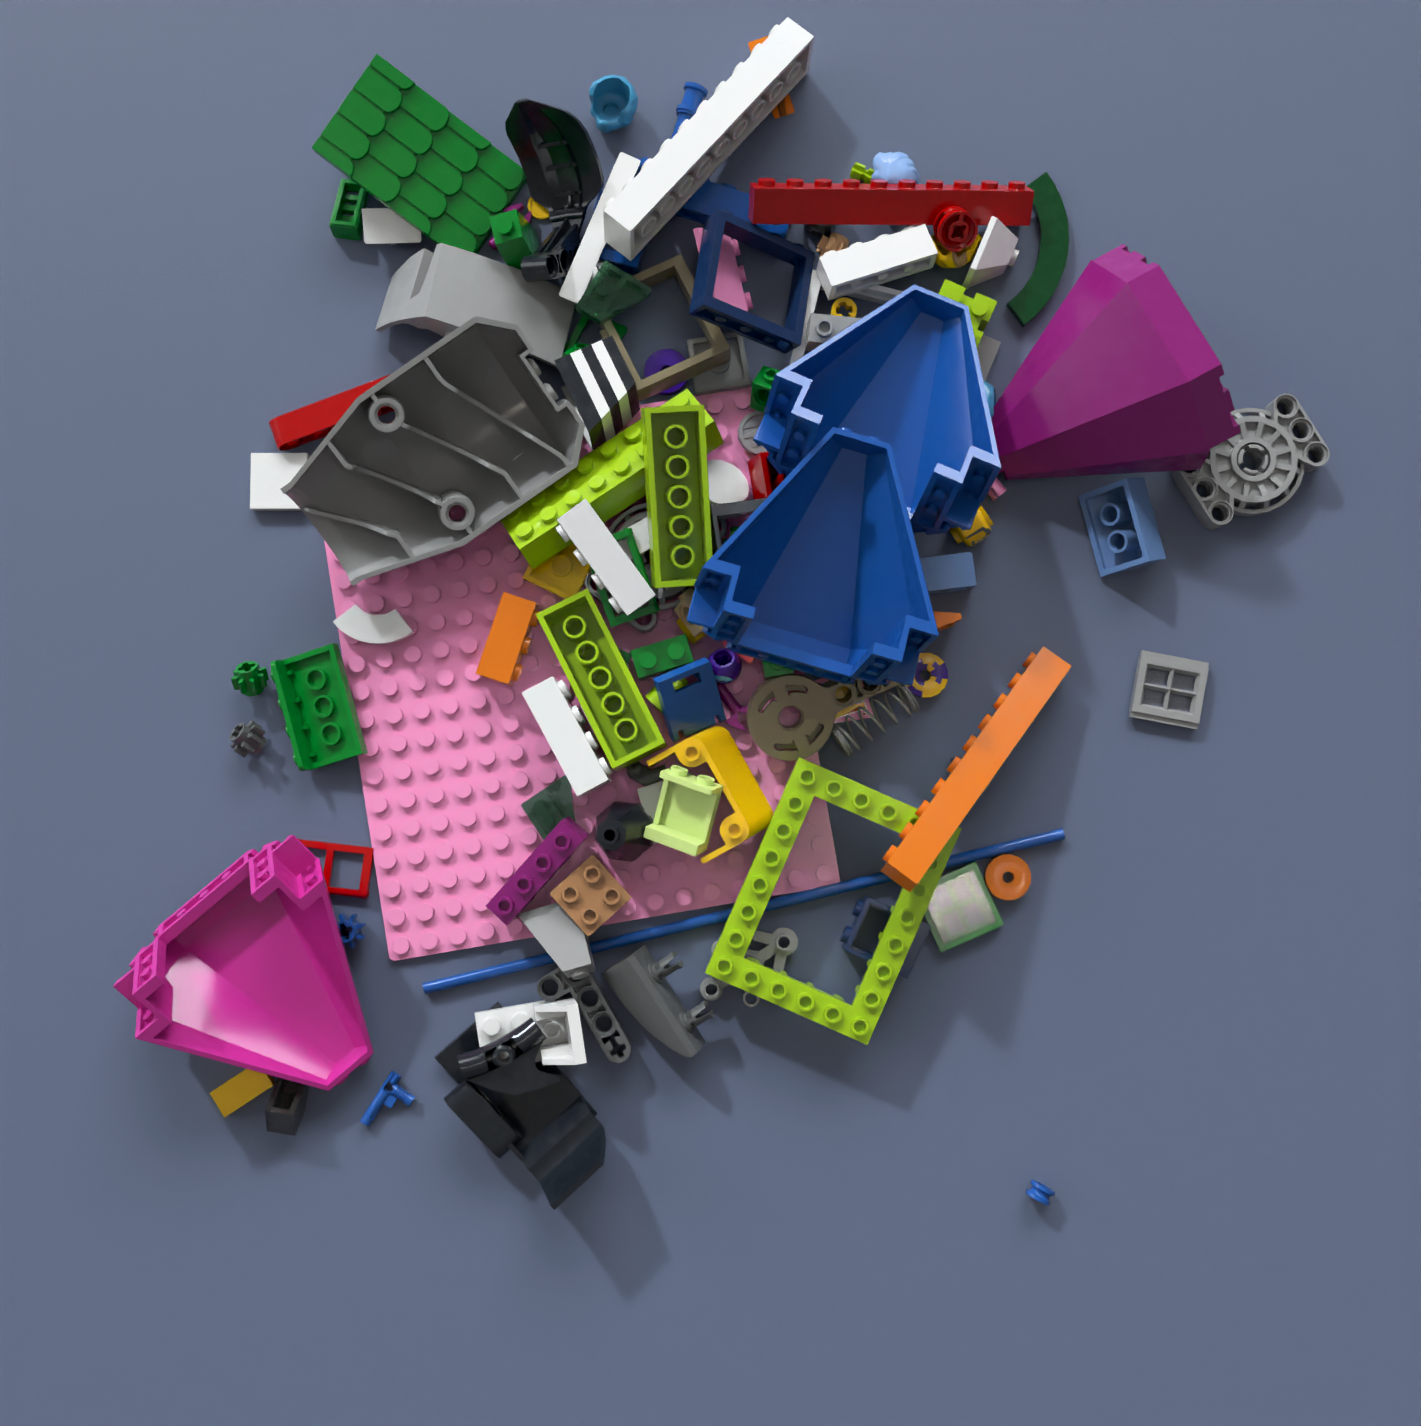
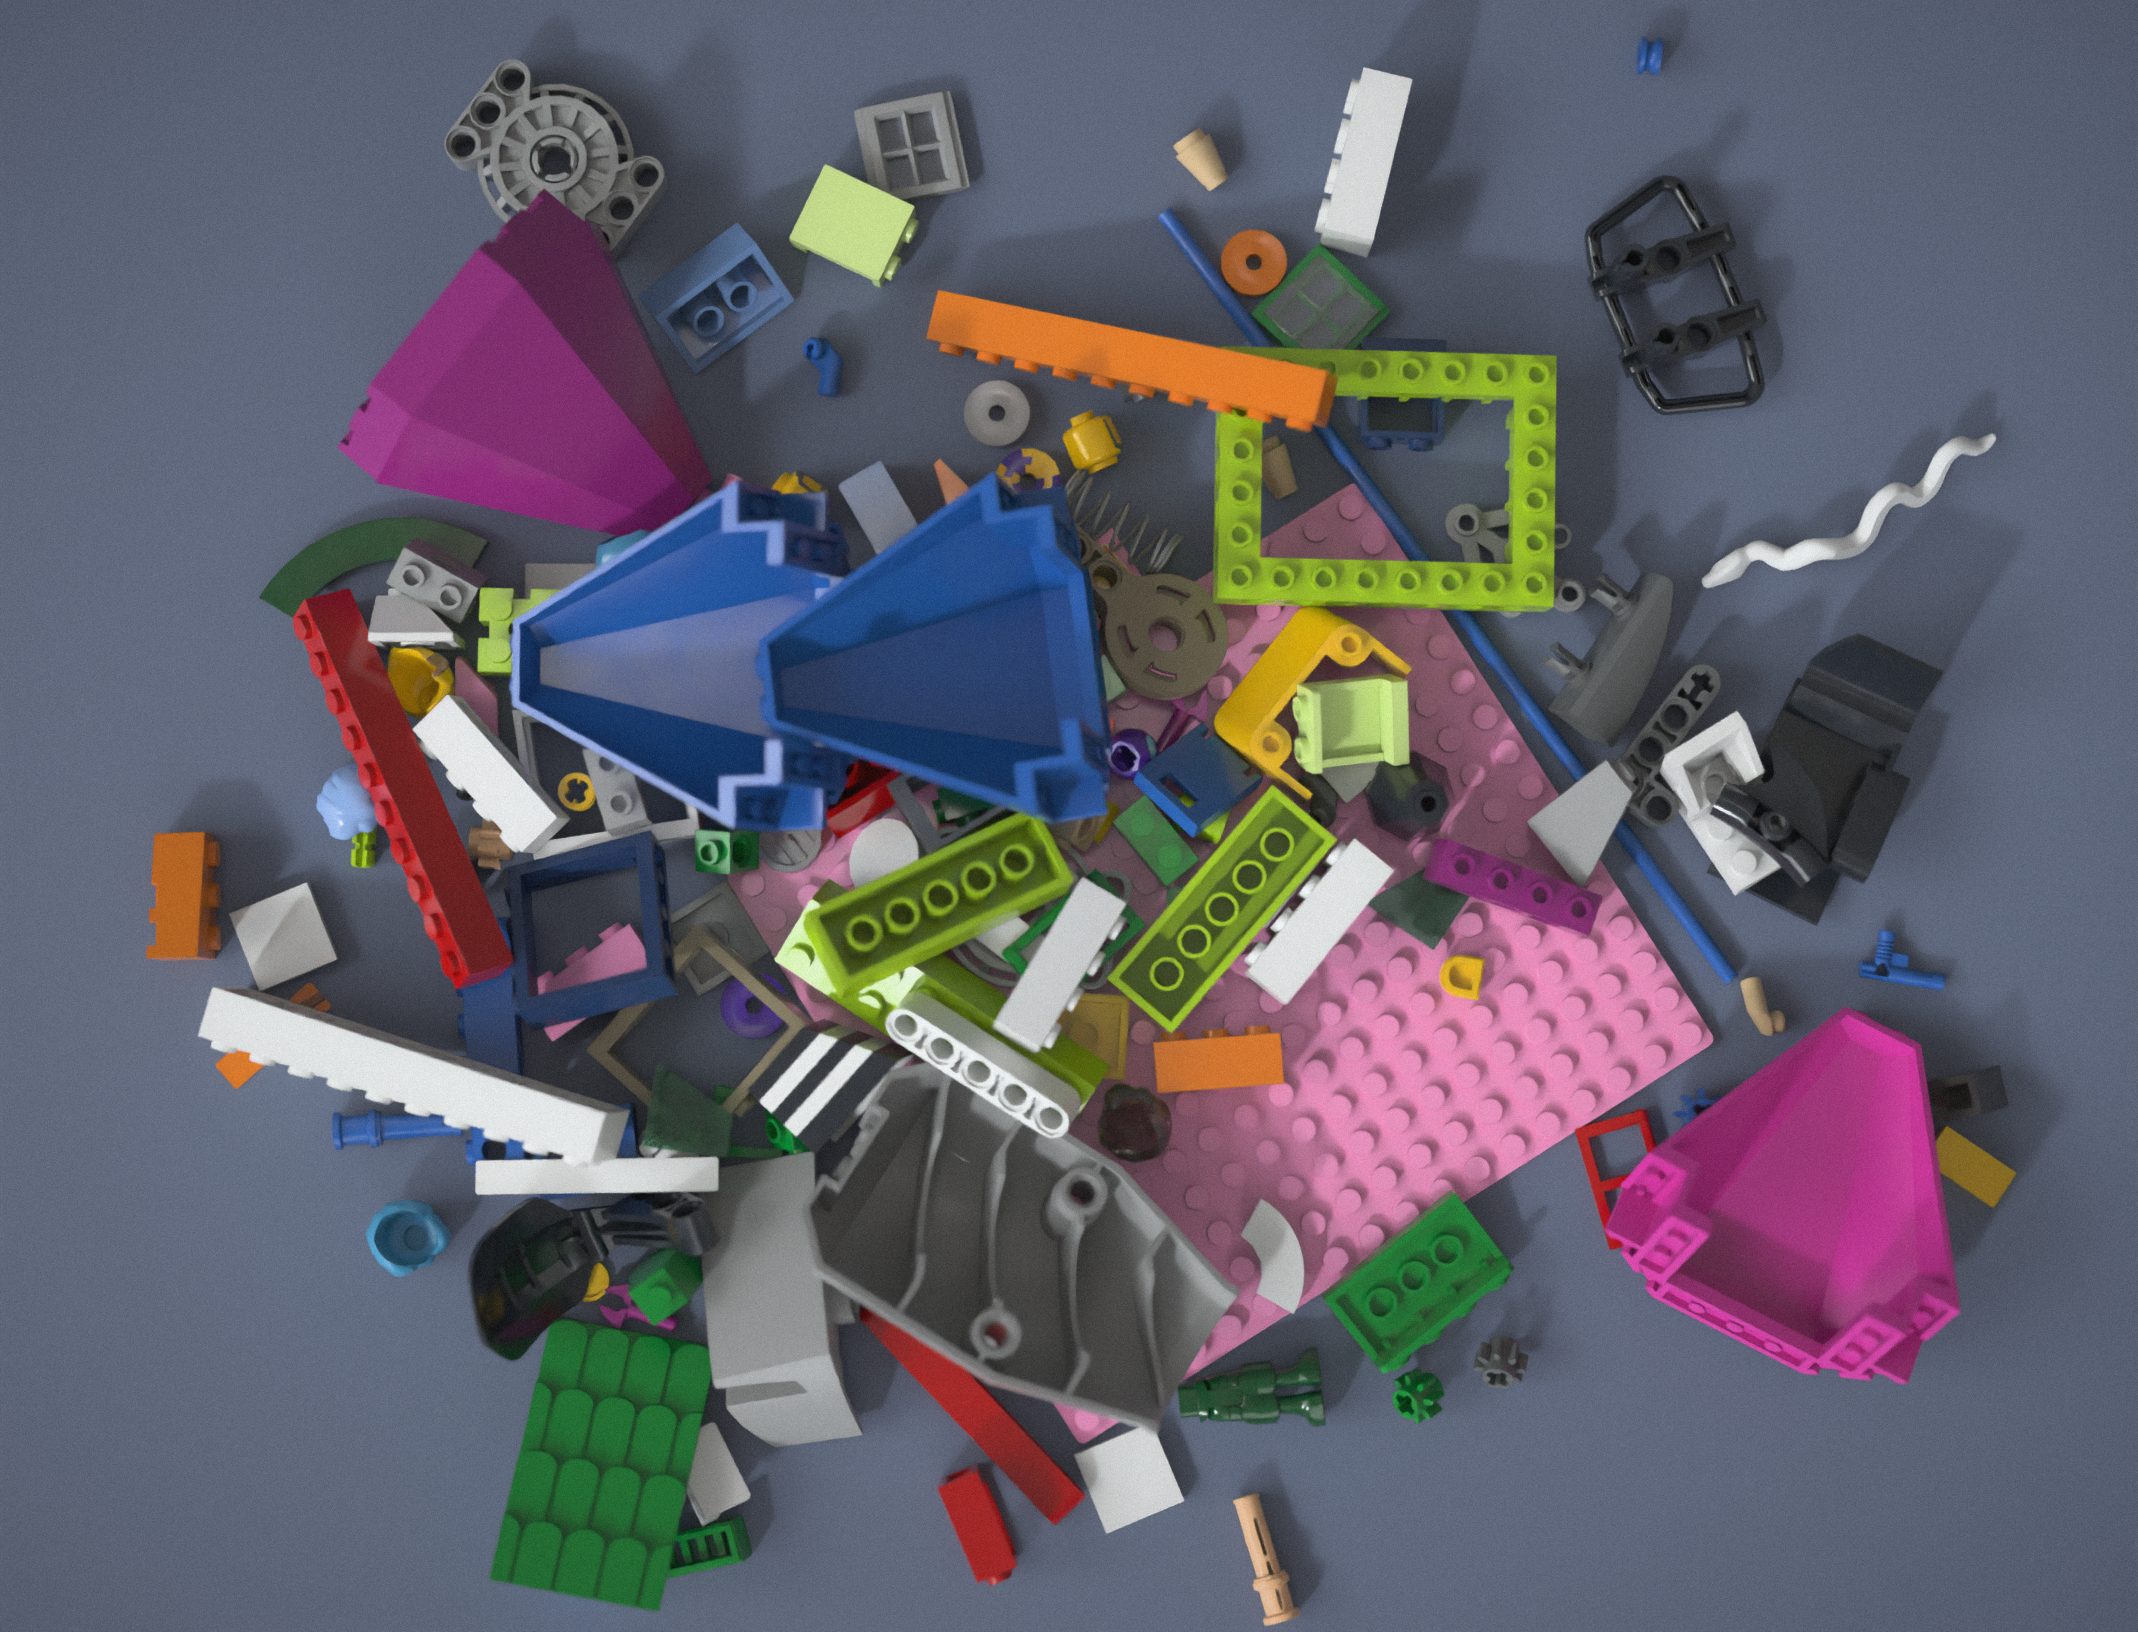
camera: 115 degrees left, 0 degrees up
(178, 542) = (1270, 1579): none -> light nougat pin
(287, 374) = (978, 1525): none -> red window
(297, 576) = (1250, 1393): none -> dark green piece
(398, 996) = (1757, 1008): none -> tan arm
(491, 570) = (1134, 1123): none -> clear smoke hair
(497, 817) = (1462, 976): none -> yellow tile
(563, 484) = (1004, 1064): none -> white beam
(590, 895) = (1515, 801): medium nougat bracket -> none
(671, 1199) = (1863, 536): none -> white animal
(828, 105) = (284, 936): none -> white tile
(870, 834) = (1277, 468): none -> tan cone
(876, 52) = (185, 897): none -> orange wedge
(901, 1126) = (1669, 343): none -> black piece
(929, 279) = (477, 693): none -> bright pink slope
(933, 725) = (1092, 442): none -> yellow head
(955, 229) = (403, 684): red wheel -> none
(985, 664) = (997, 395): none -> light grey piece
(1013, 279) = (437, 580): none -> light grey brick
(1050, 978) = (1367, 154): none -> white brick
(1053, 580) = (828, 362): none -> blue arm
(1089, 871) = (1201, 158): none -> tan cone
(1133, 632) = (855, 225): none -> yellowish green panel

